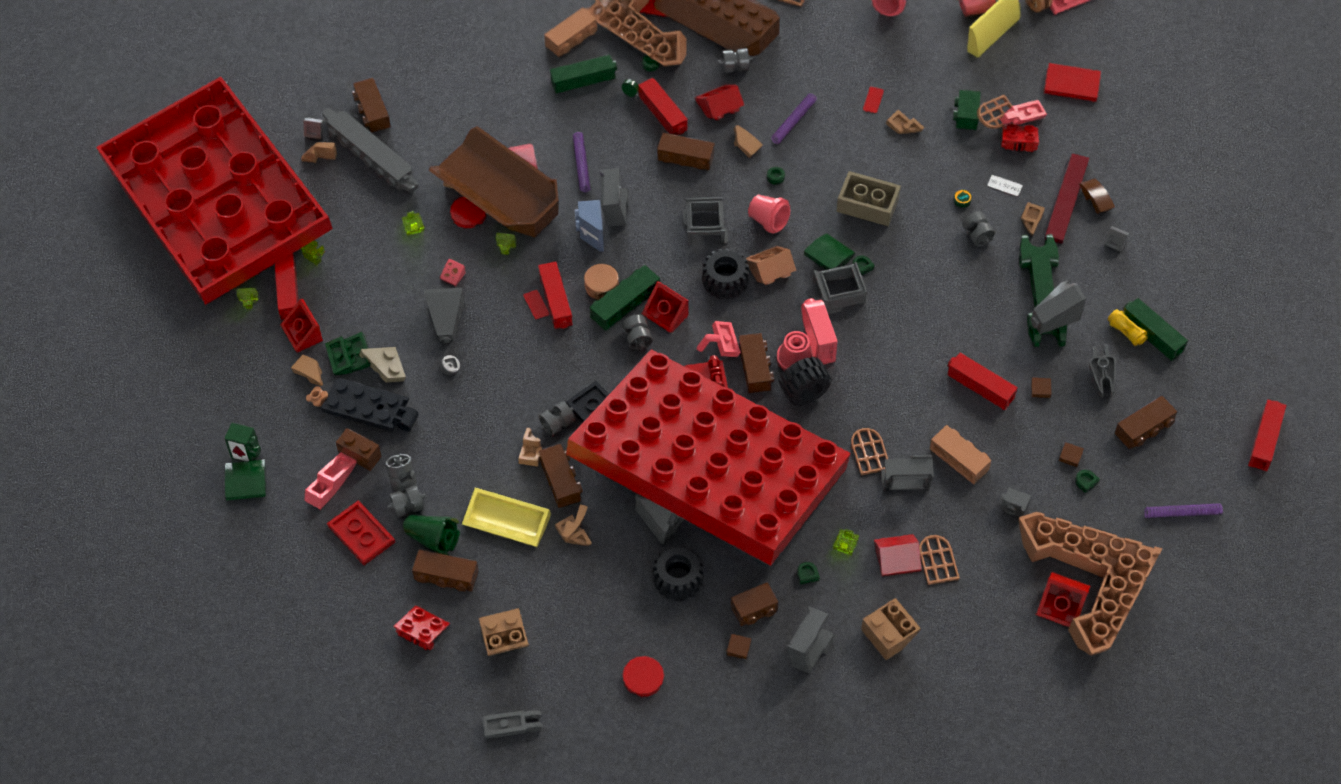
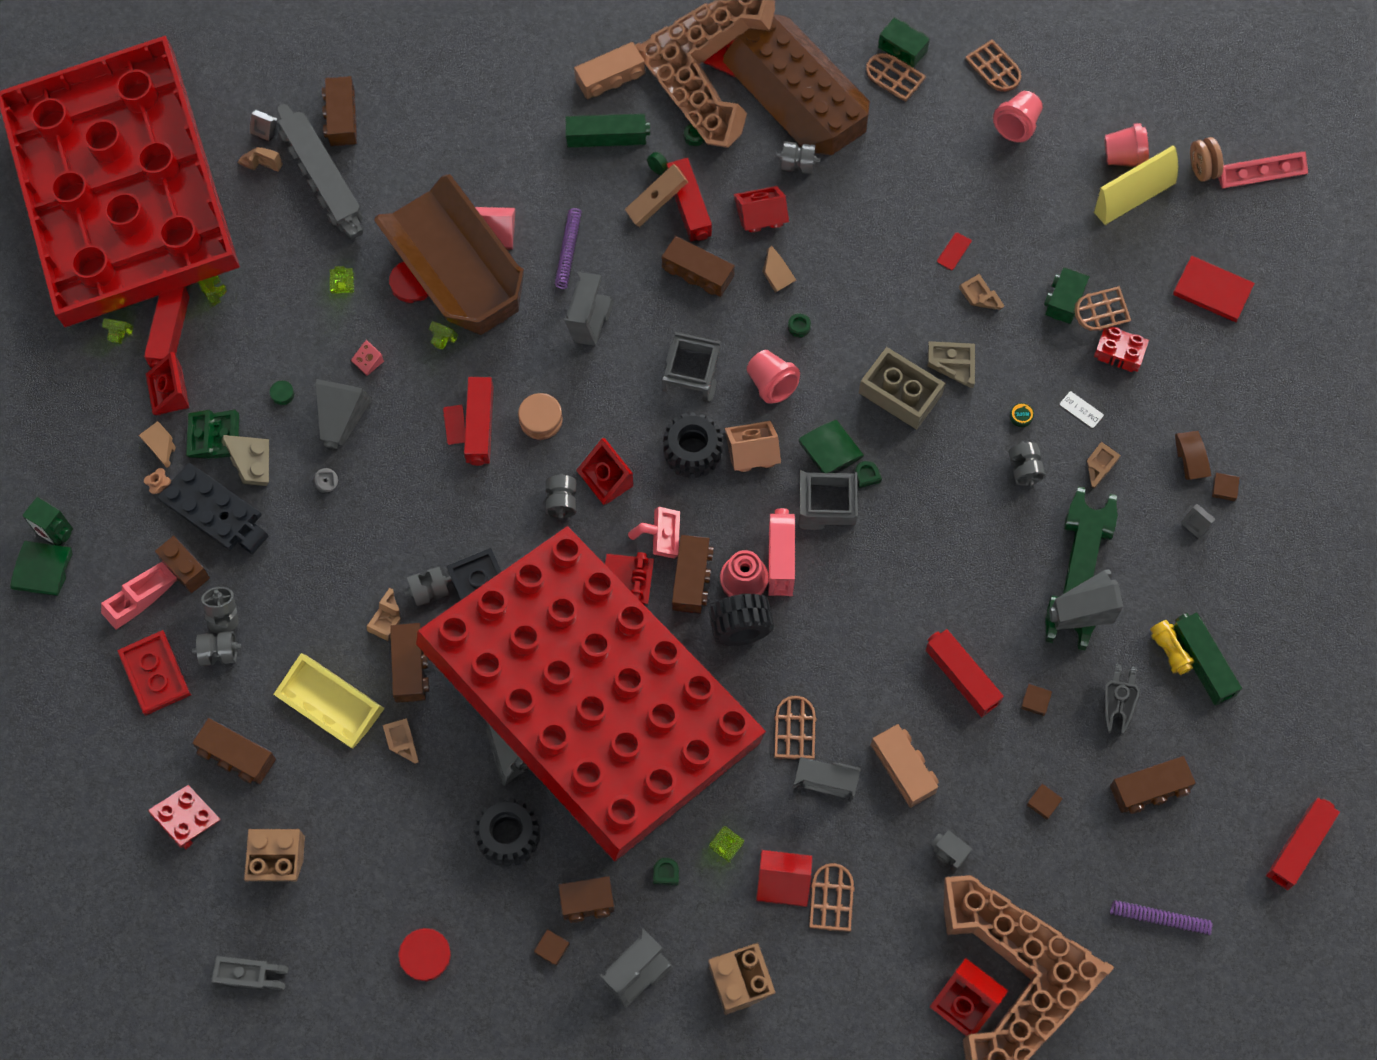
camera: 15 degrees right, 10 degrees up
(393, 312) = (282, 392): none -> dark green tile
(434, 532) = (234, 699): dark green cone -> none
(571, 527) = (396, 739): medium nougat slope -> none
(589, 223) = (549, 336): sand blue slope -> none
(624, 297) = (561, 444): dark green brick -> none
(638, 108) = (656, 195): none -> medium nougat tile
(794, 117) = (842, 253): medium lavender piece -> none
(900, 172) = (953, 360): none -> dark tan wing
(1024, 113) = (1136, 318): coral hinge -> none
(1067, 197) = (1154, 447): dark red tile -> none
(1086, 480) = (1052, 841): dark green tile -> none
(1127, 212) = (1225, 486): none -> reddish brown tile

